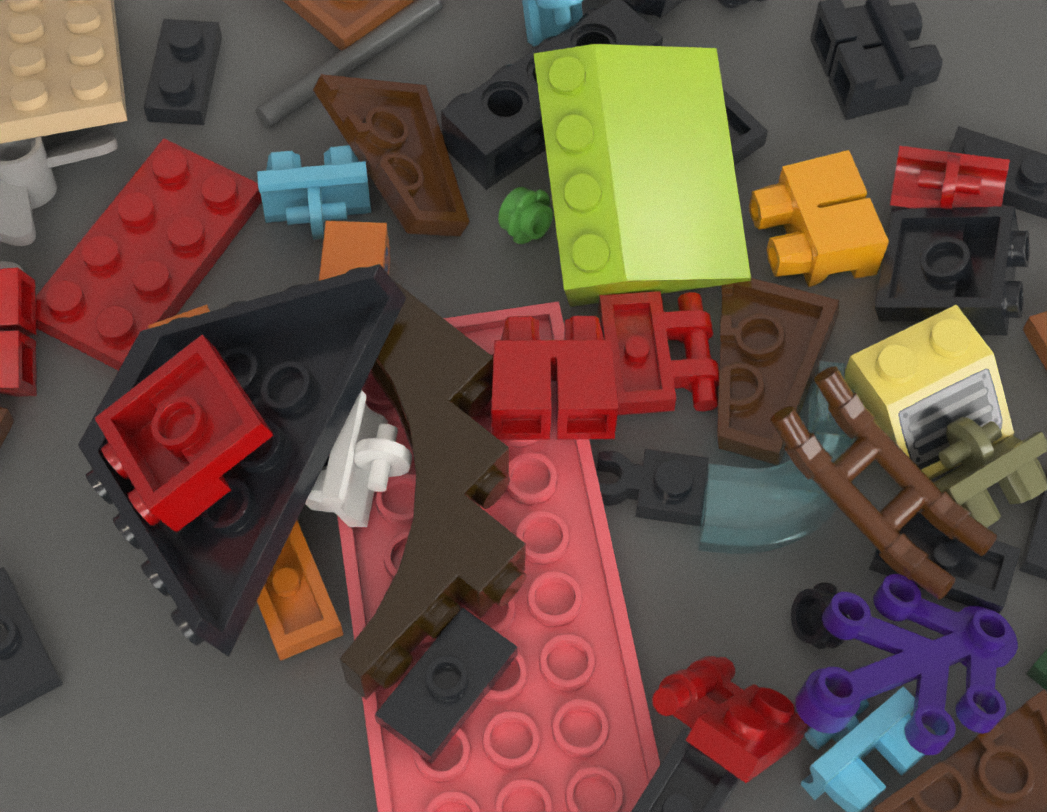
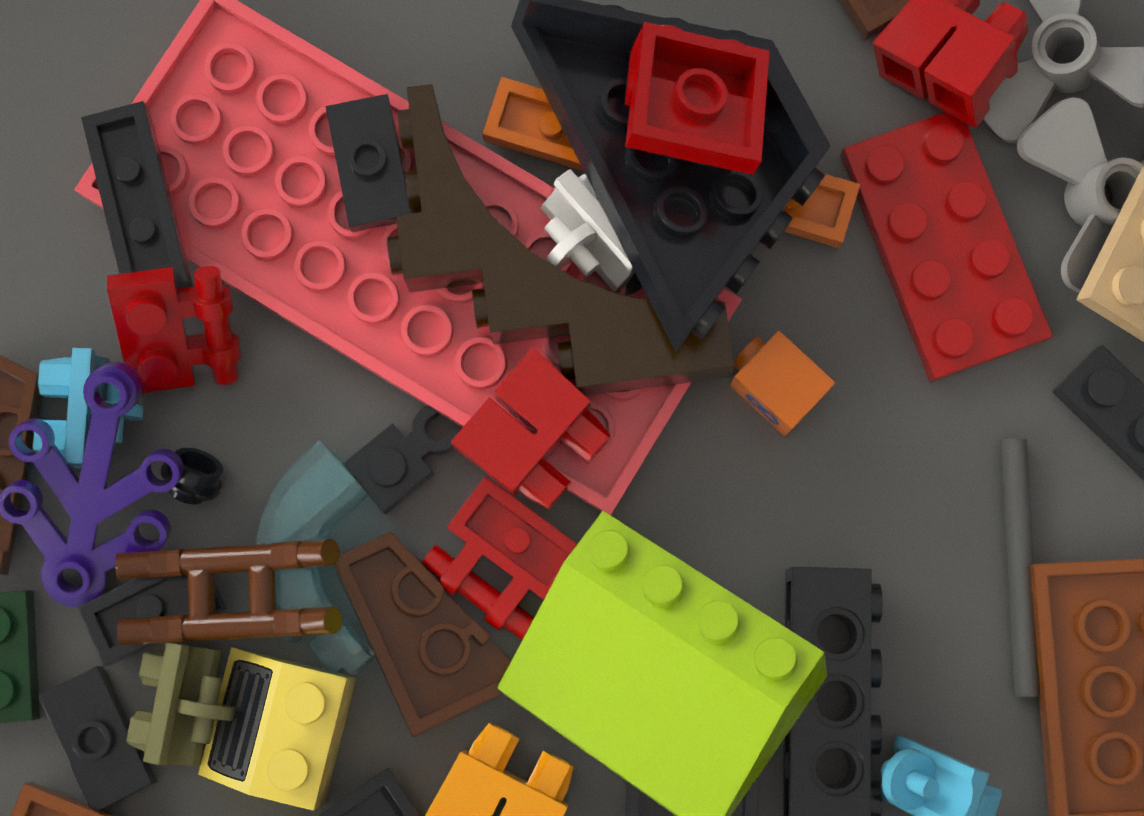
camera: 135 degrees right, 20 degrees up
(314, 192) = (908, 393): medium azure hips -> none
(403, 149) = (872, 514): reddish brown wing -> none
(525, 214) = (721, 563): bright green plate -> none

